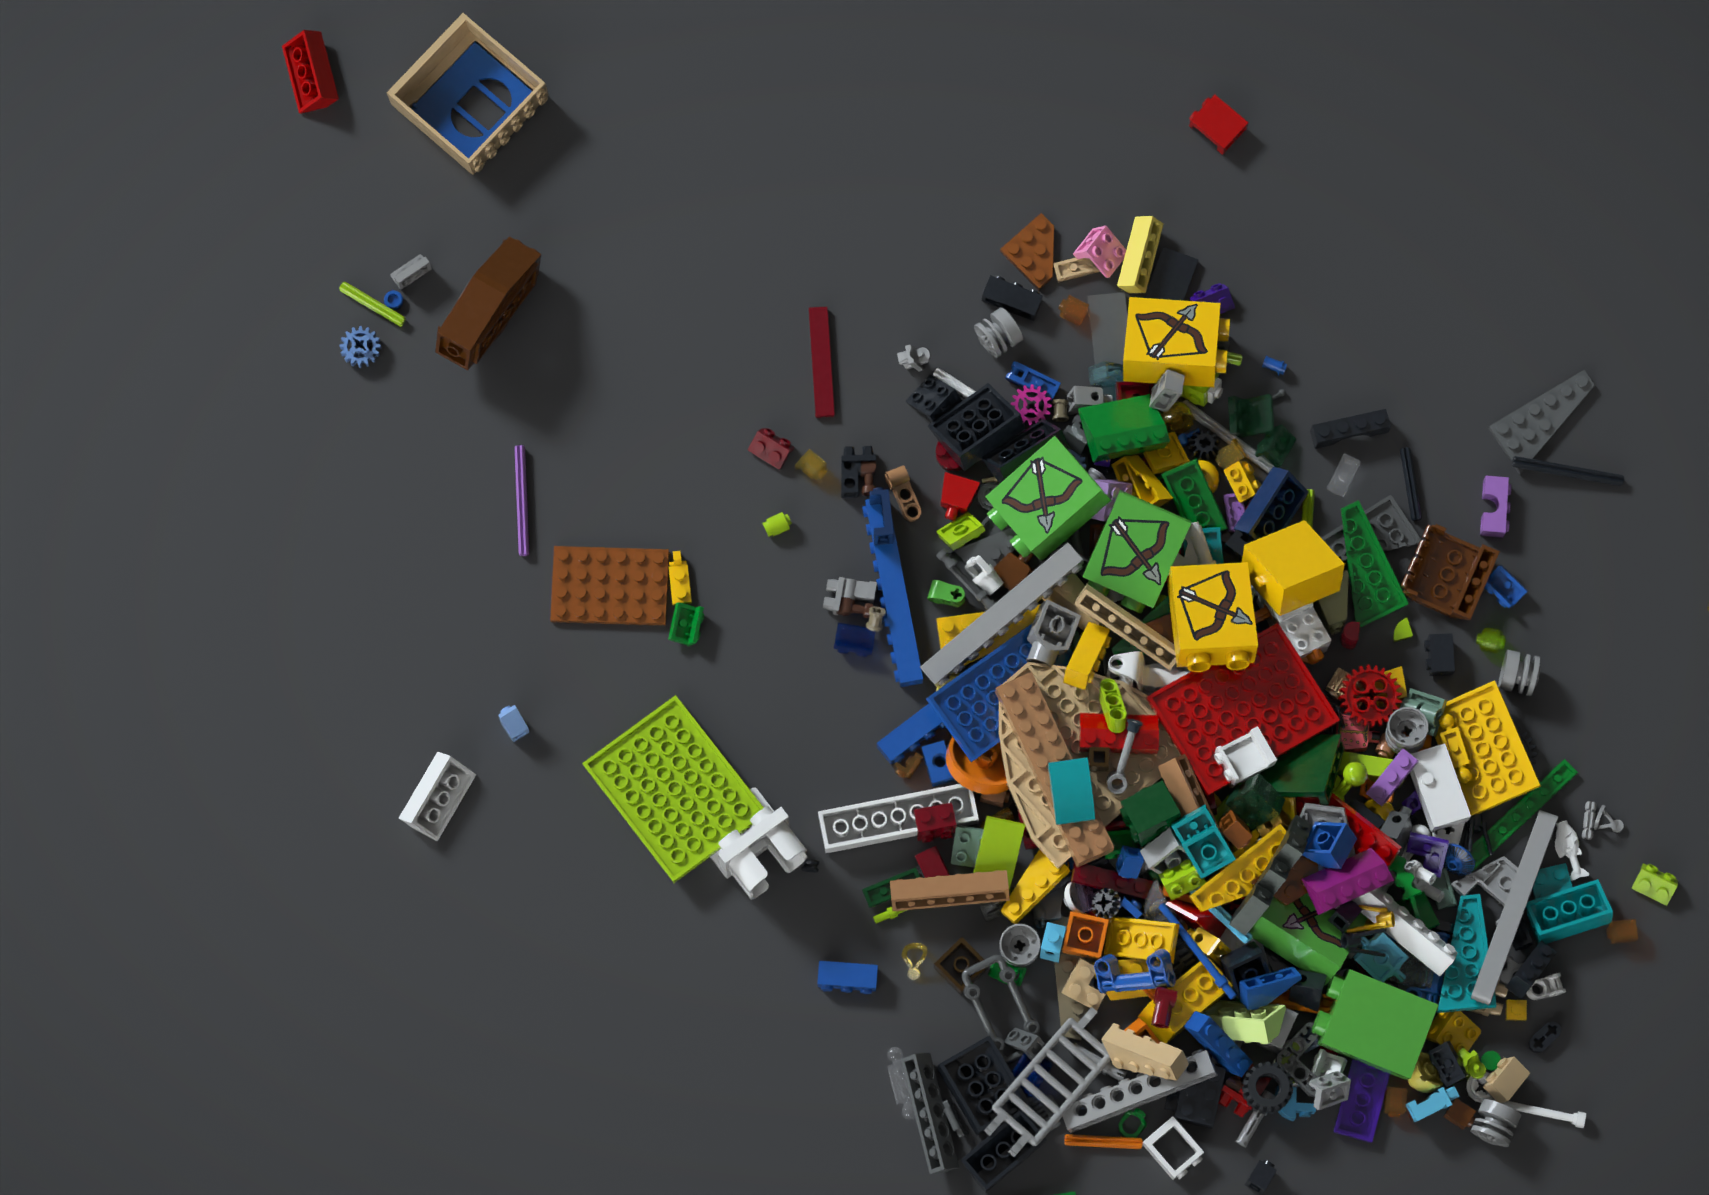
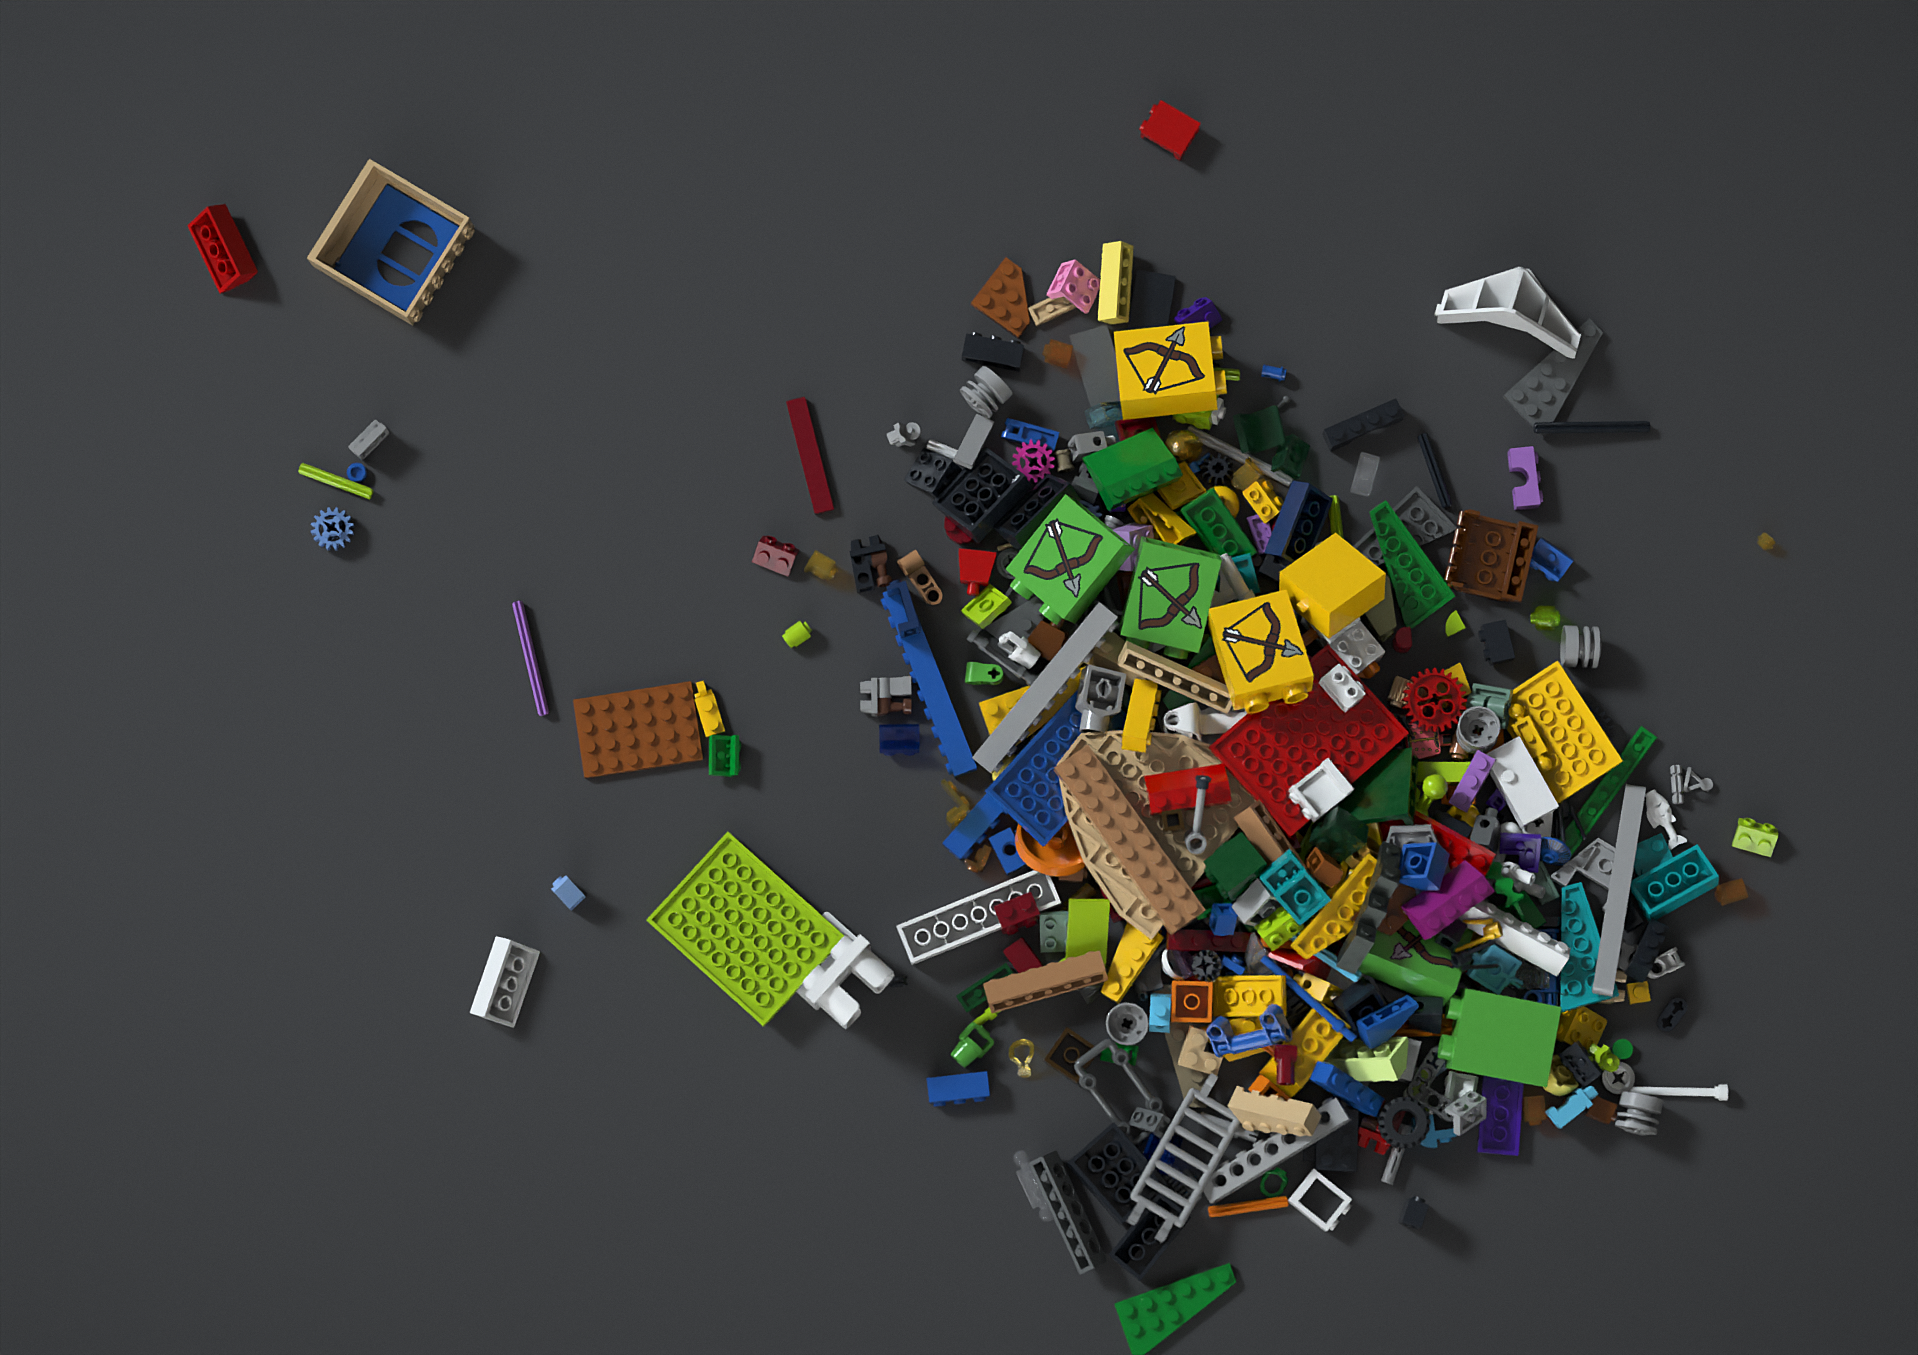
camera: 10 degrees left, 5 degrees up
(488, 303) = (456, 461): reddish brown container -> none
(864, 942) = (967, 1049): none -> bright green piece
(875, 619) = (917, 714): dark tan bush -> none
(893, 718) = (956, 814): none -> clear yellow bracket
(953, 1118) = (1092, 1212): dark grey piece -> none
(978, 376) = (973, 441): none -> light grey tile
(1071, 791) = (1152, 861): teal slope -> none
(1112, 705) = (1176, 764): lime beam -> none
(1167, 390) = (1170, 423): light grey brick -> none
(1284, 665) = (1342, 687): none -> white brick
(1506, 1079) = (1641, 1066): tan brick -> none
(1514, 337) = (1514, 301): none -> white panel

